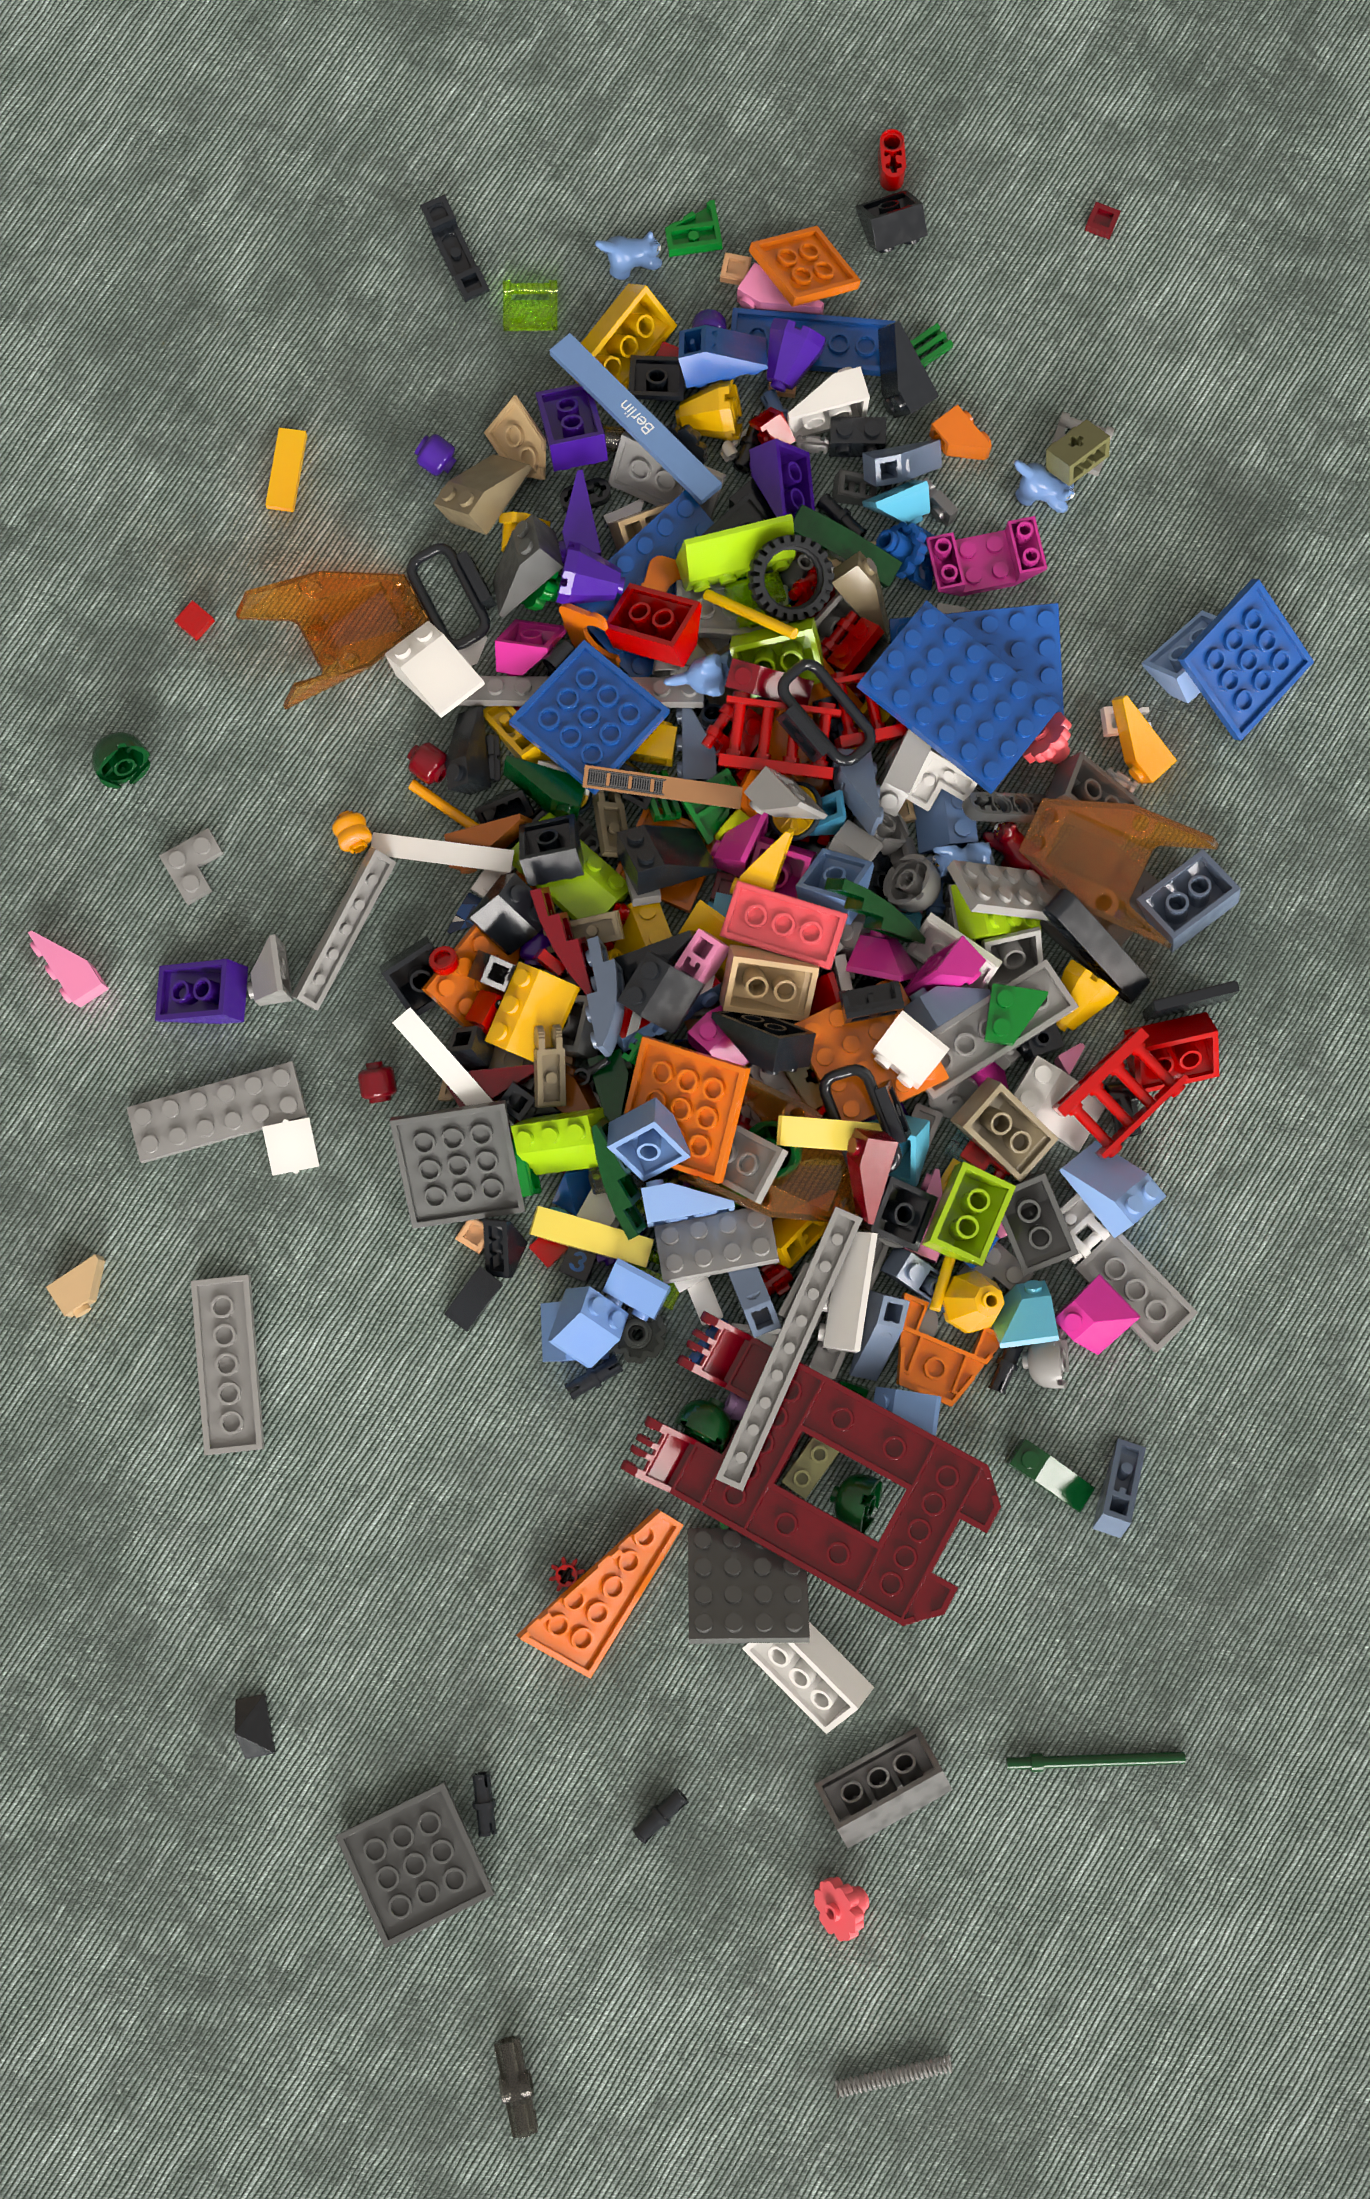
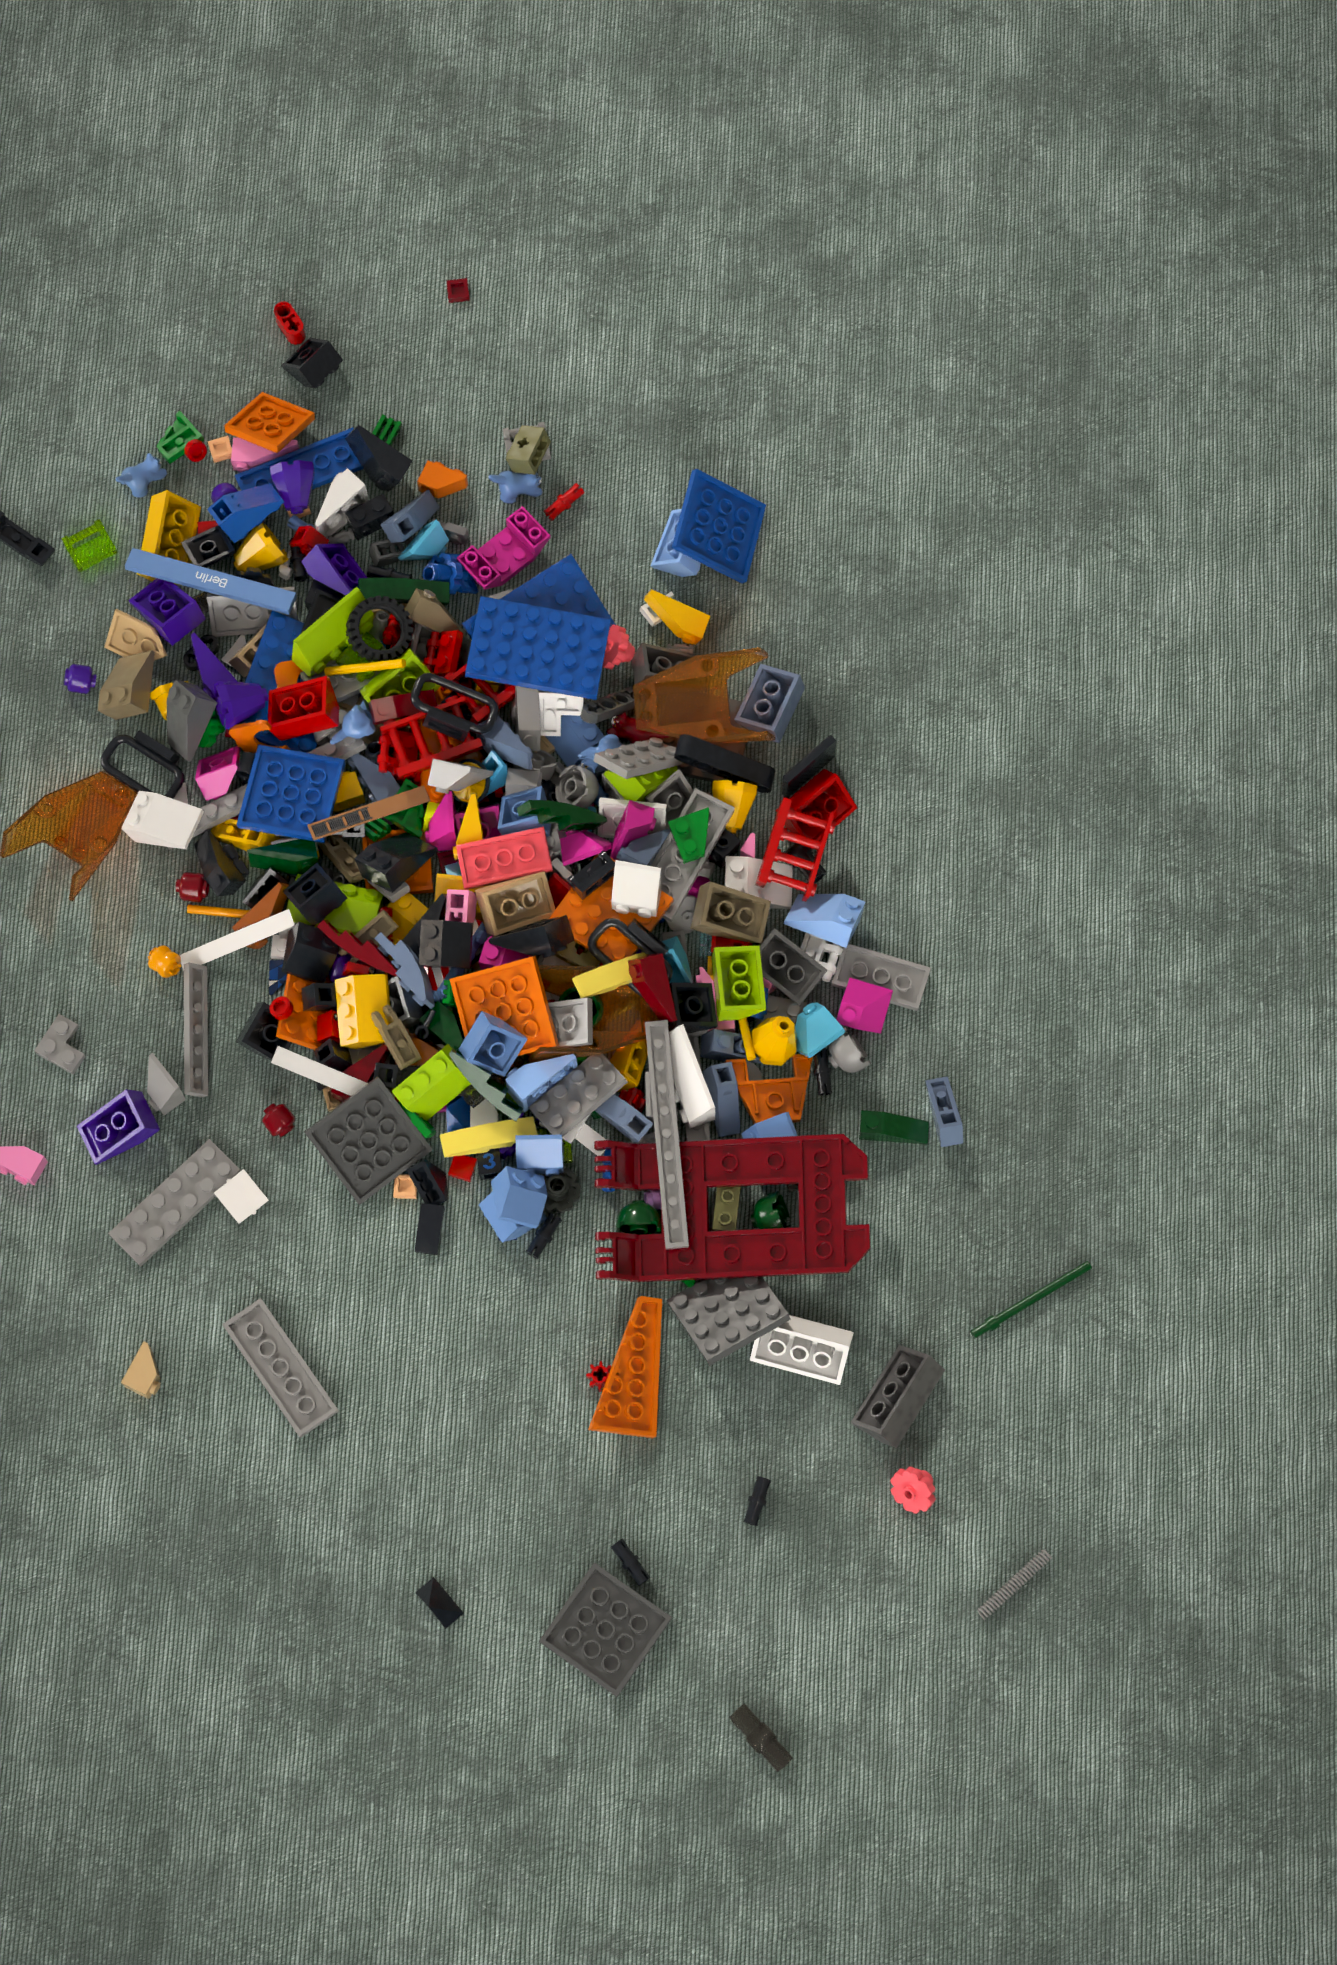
camera: 30 degrees left, 10 degrees down
(705, 256) = (195, 450): none -> red tile
(1085, 535) = (564, 502): none -> red pin

